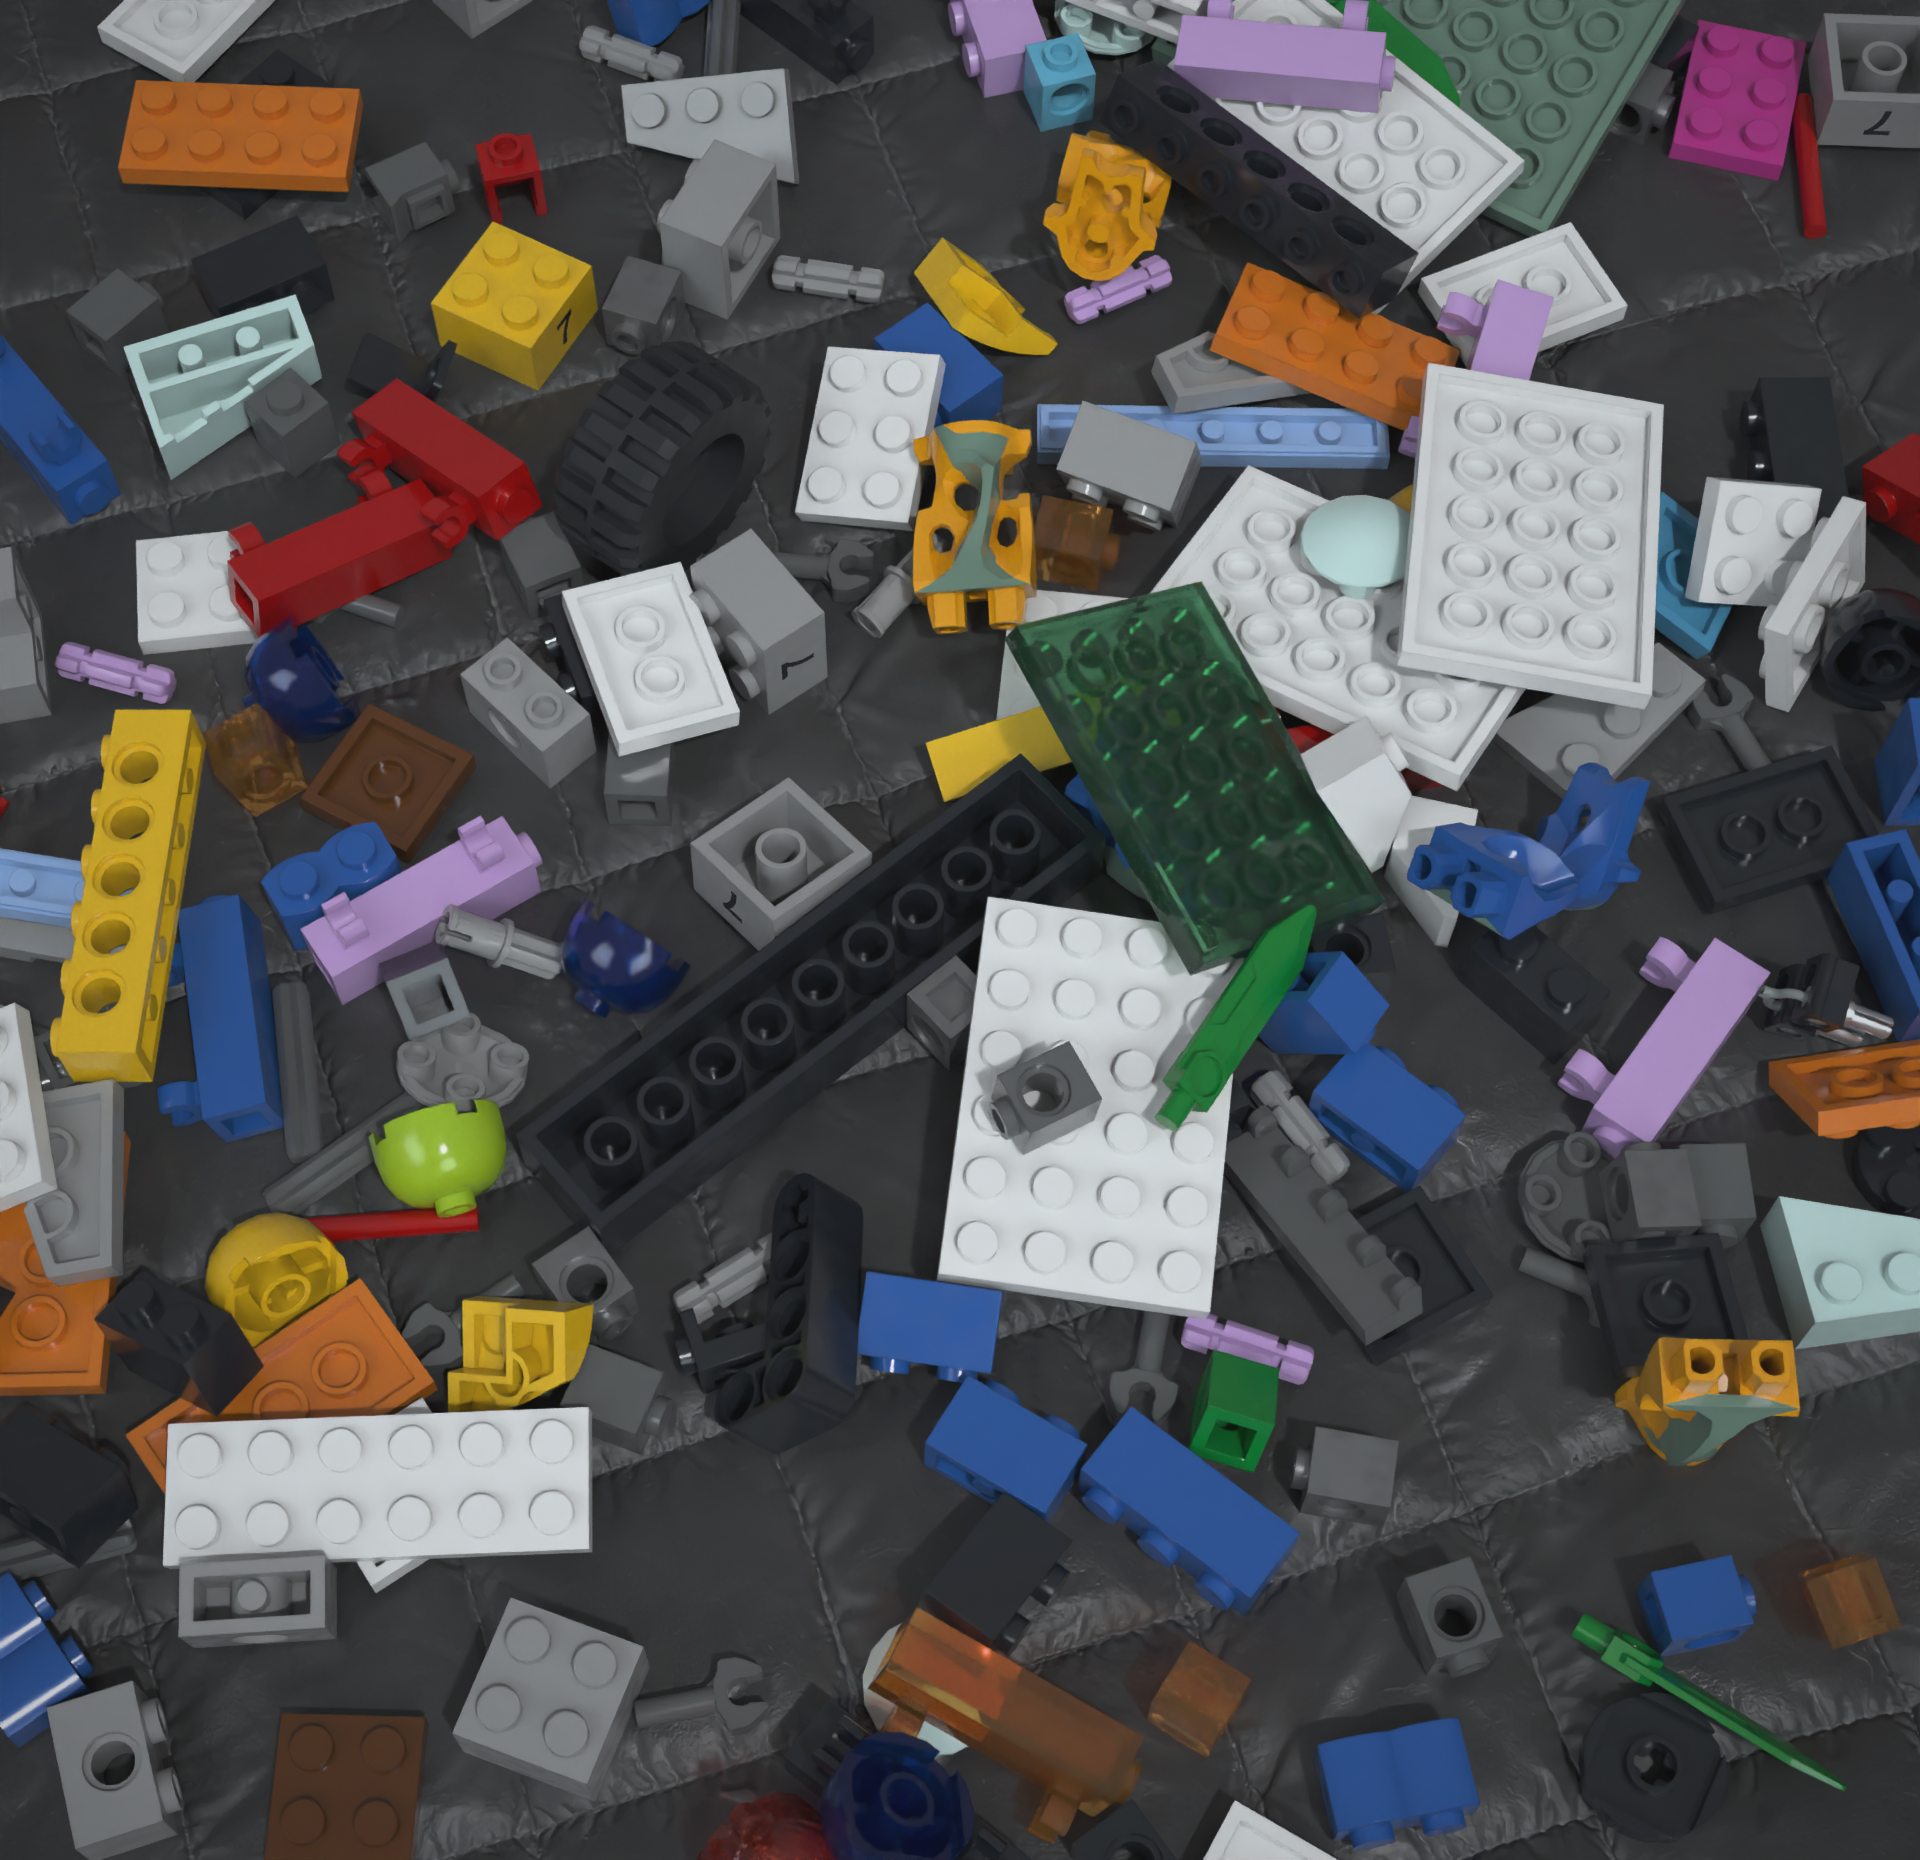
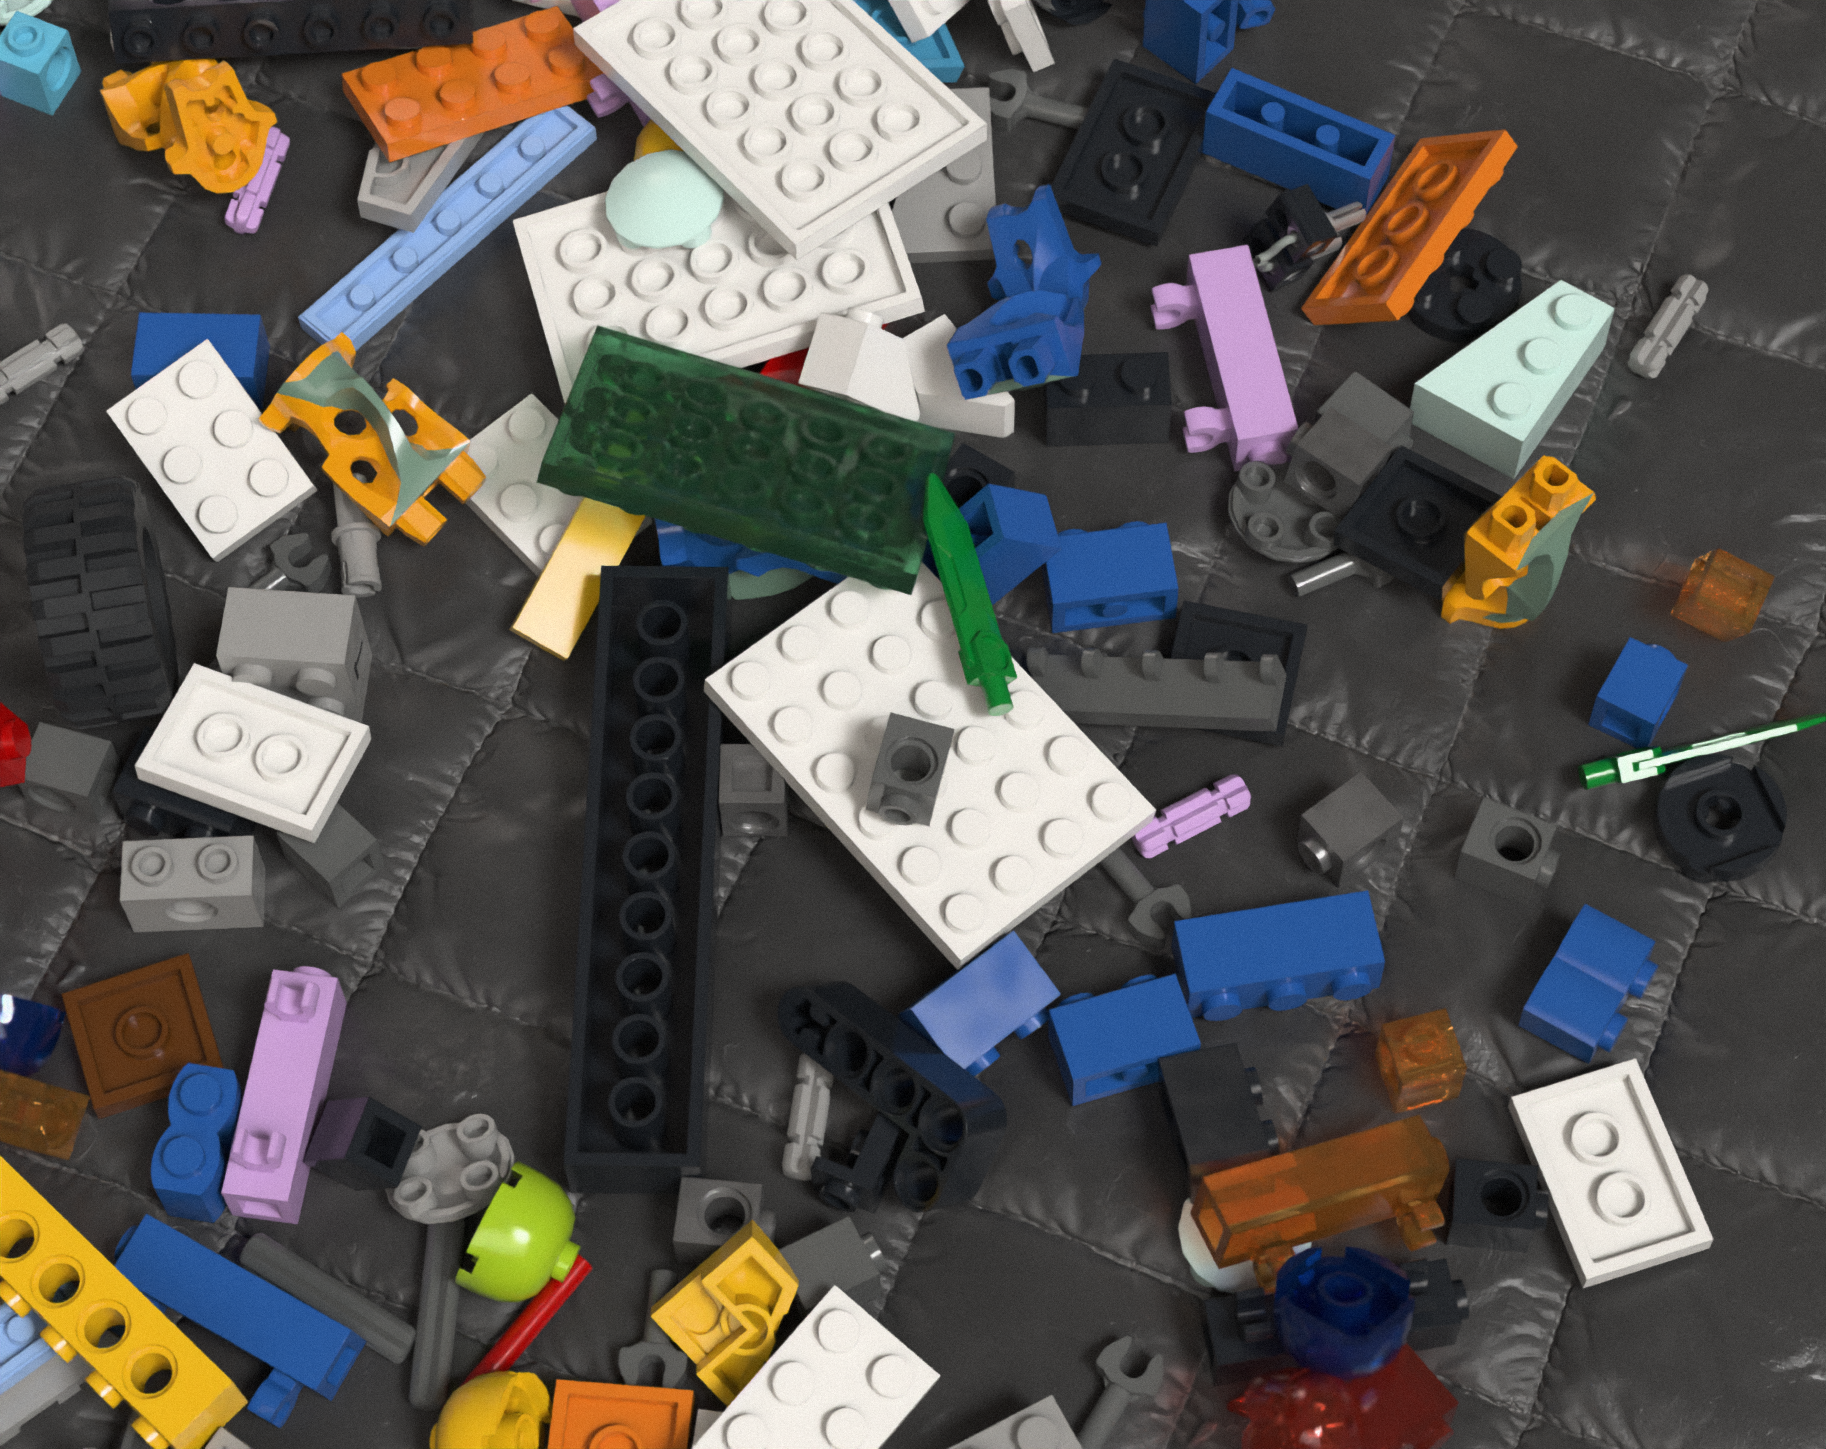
camera: 45 degrees left, 0 degrees up
(499, 942) = (374, 1059): light grey axle -> none
(617, 964) = (479, 988): clear blue cylinder -> none
(775, 862) = (517, 811): light grey brick -> none
(978, 303) = (166, 282): yellow slope -> none
(1074, 543) = (451, 385): clear orange brick -> none
(1129, 466) = (436, 295): light grey brick -> none
(1233, 1411) = (1237, 859): green brick -> none
(1300, 1125) = (1059, 638): light grey axle -> none

